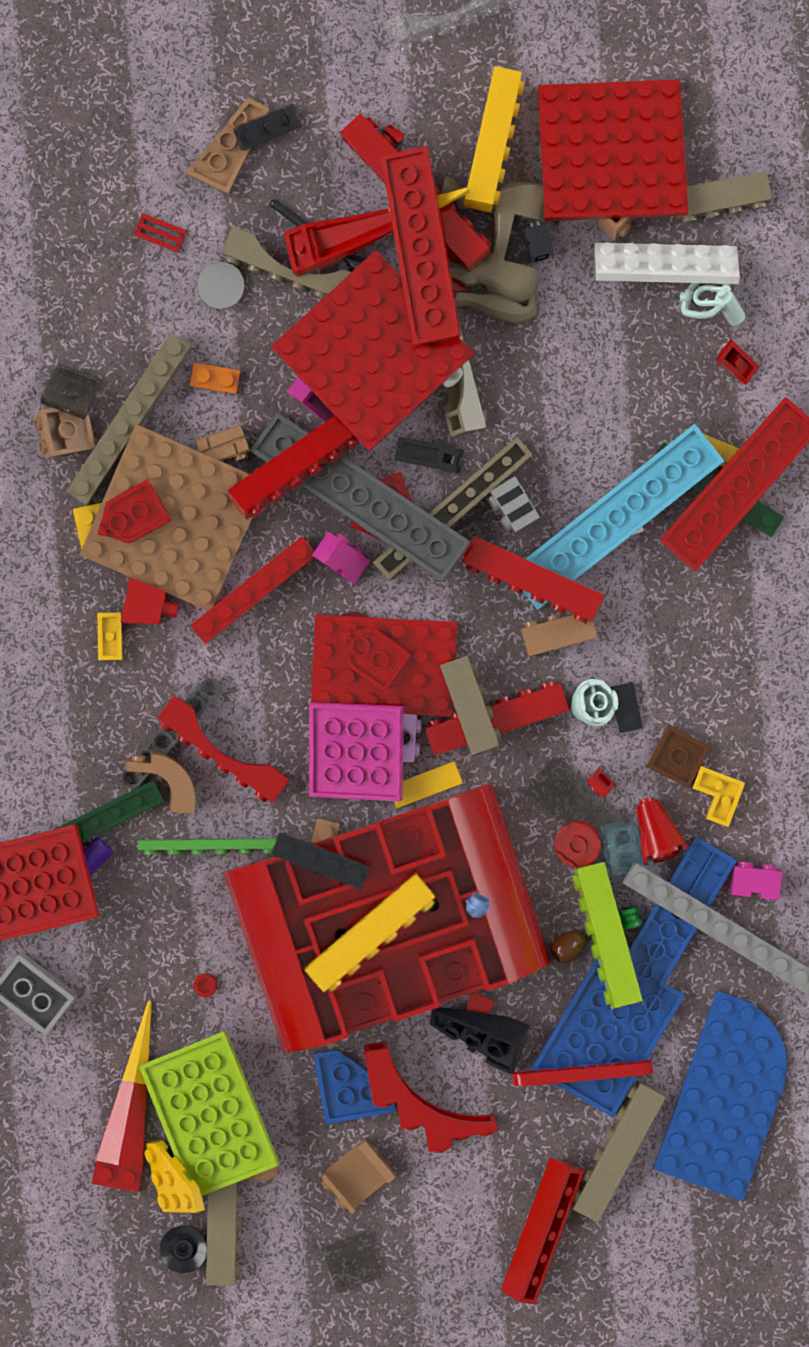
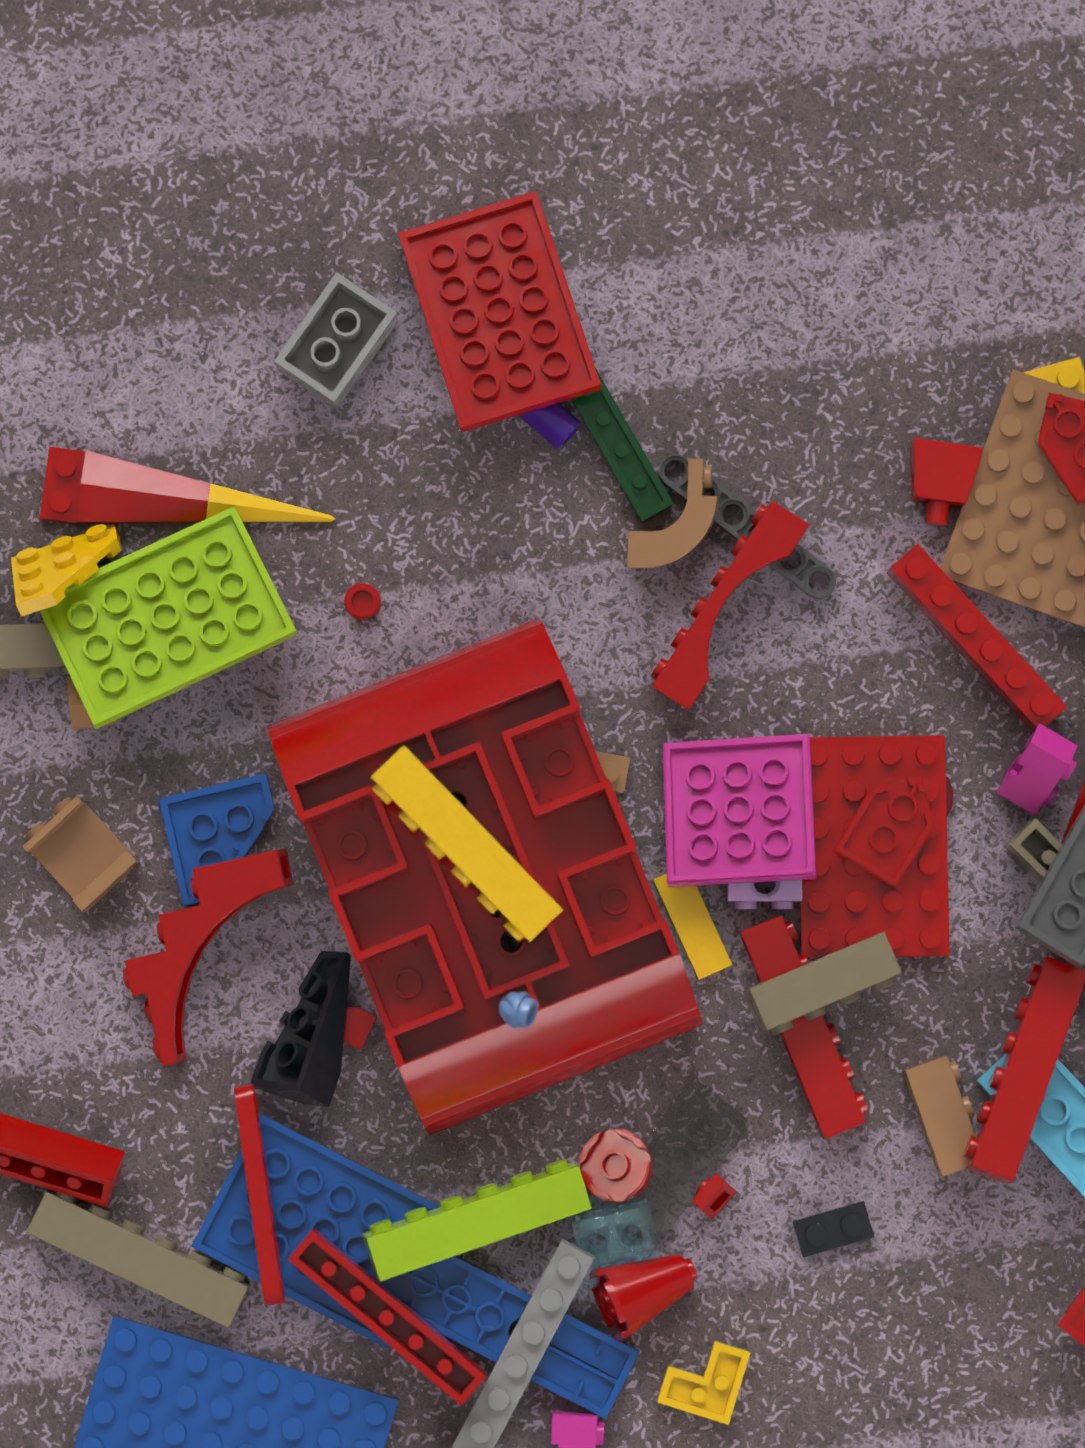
camera: 85 degrees right, 5 degrees down
(110, 636) = (888, 424): yellow plate -> none
(199, 846) = (576, 579): bright green plate -> none
(320, 860) = (573, 760): black plate -> none
(569, 946) = (455, 1161): reddish brown animal -> none
(594, 702) = (839, 1177): light aqua cone -> none
(629, 917) = (505, 1254): green wheel -> none
(664, 996) = (387, 1316): none -> red brick
(678, 756) = (762, 1316): reddish brown plate -> none

